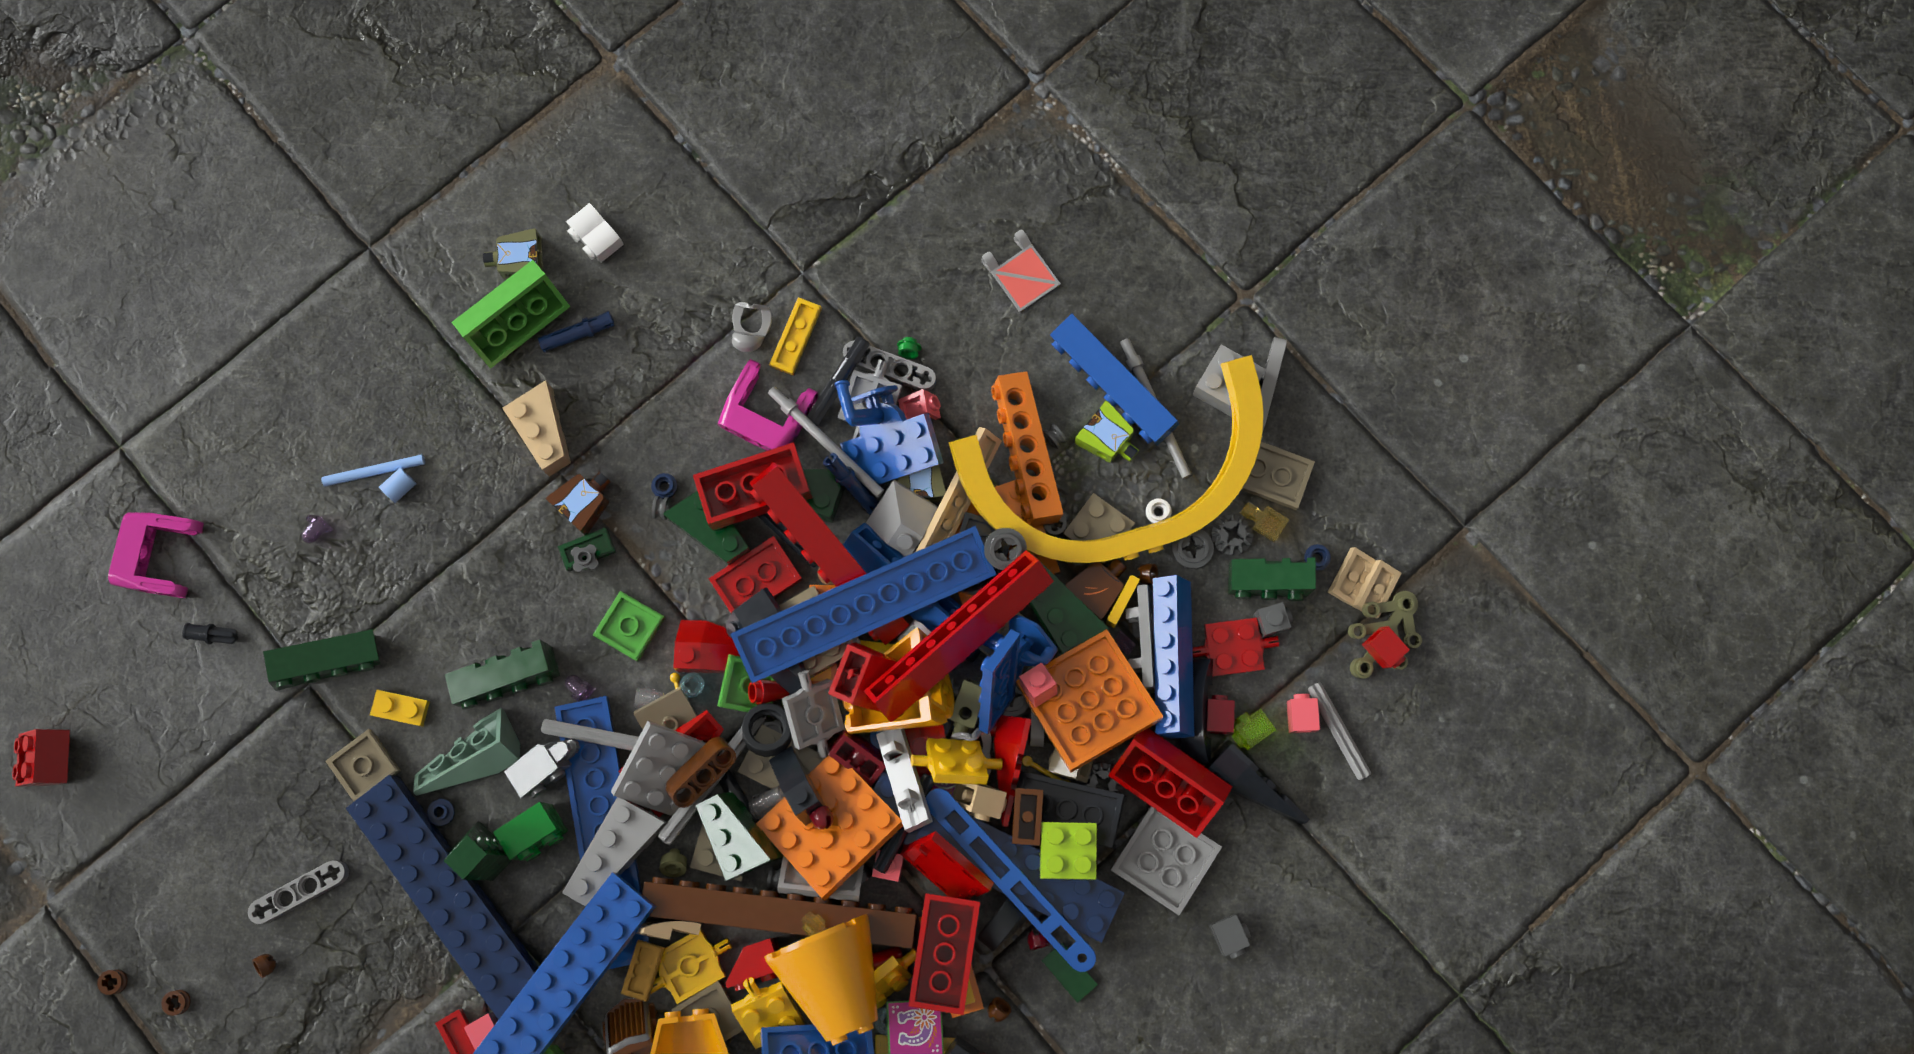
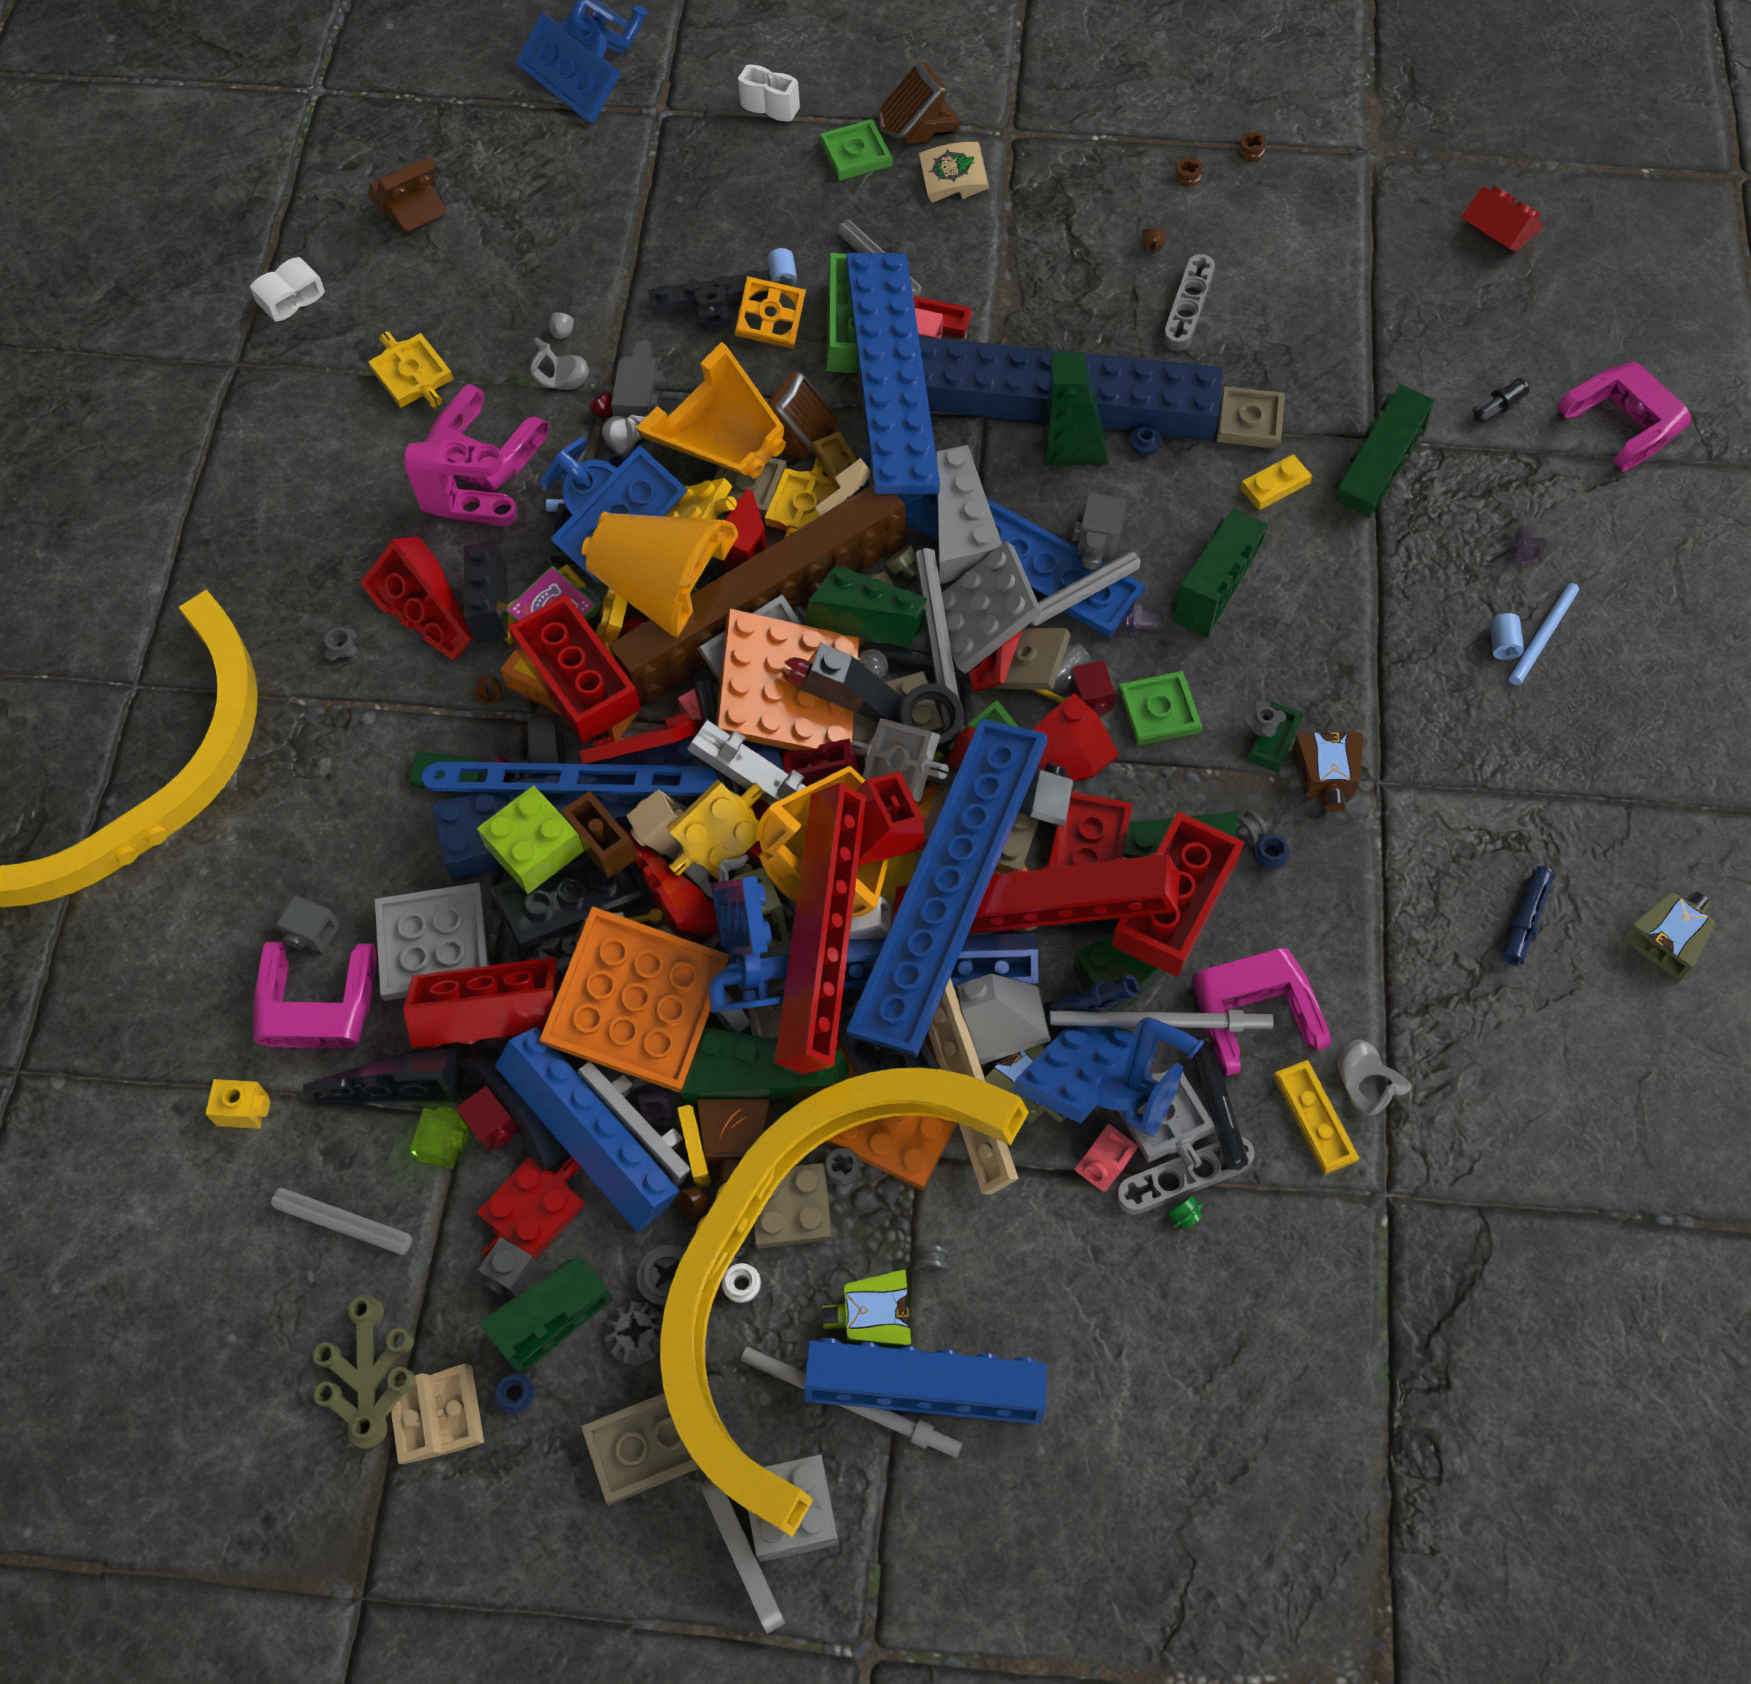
camera: 135 degrees right, 15 degrees down
(481, 754) = (1166, 499): sand green wedge -> none
(511, 314) = (1605, 861): bright green brick -> none
(531, 832) = (1048, 476): green brick -> none
(540, 427) = (1446, 791): tan wedge -> none
(595, 233) = (1635, 1026): white brick -> none
(655, 669) = (1093, 686): none -> dark red brick
(696, 784) = (951, 626): reddish brown beam -> none
(697, 679) = (1044, 696): clear light blue bush -> none
(813, 924) = (713, 579): clear yellow plate -> none
(994, 541) = (856, 1043): dark grey gear -> none
(1018, 387) = (860, 1161): orange brick -> none
(1023, 276) = (1148, 1421): flag -> none
(1038, 685) = (698, 957): coral brick -> none
(1268, 522) = (603, 1380): clear yellow plate -> none
(1275, 869) = (312, 1023): none -> dark pink connector
(1303, 714) = (394, 1198): coral brick -> none
(1348, 850) = (237, 1104): none -> yellow brick
(1386, 647) = (348, 1342): red brick -> none

